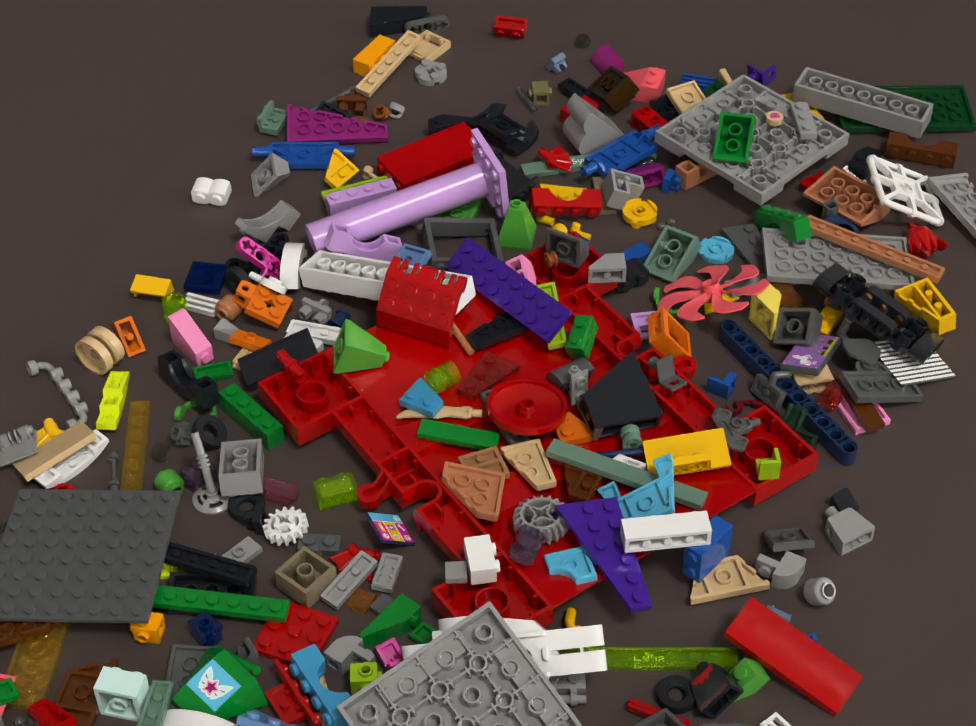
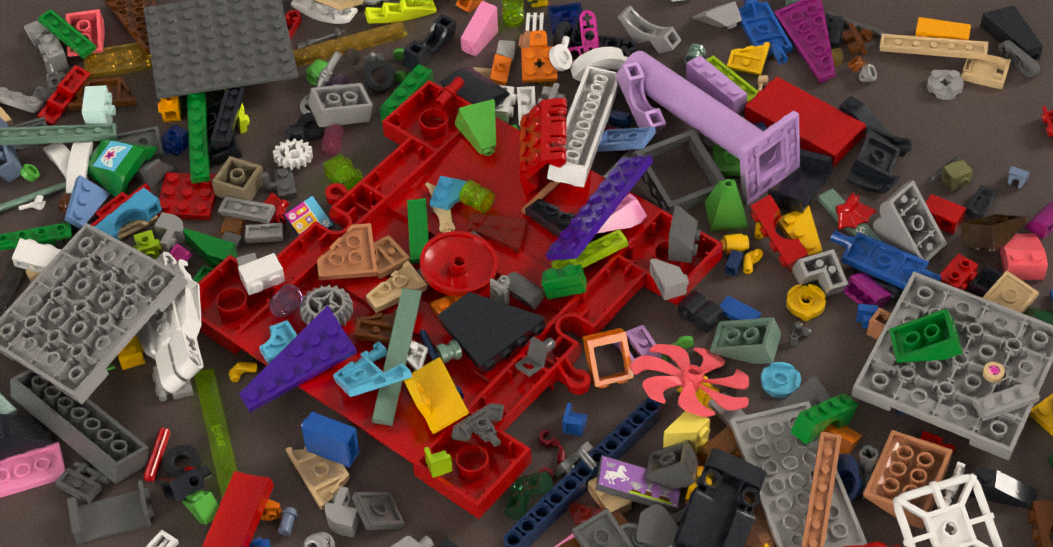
camera: 75 degrees right, 5 degrees up
(215, 371) = (455, 58): green tile -> none
(244, 551) = (259, 138): light grey plate -> none
(245, 663) = (138, 166): green bar -> none
(312, 203) = (694, 51): none -> sand green wheel
(550, 259) = (662, 231): dark orange bush -> none
(665, 531) = (314, 389): white brick -> none

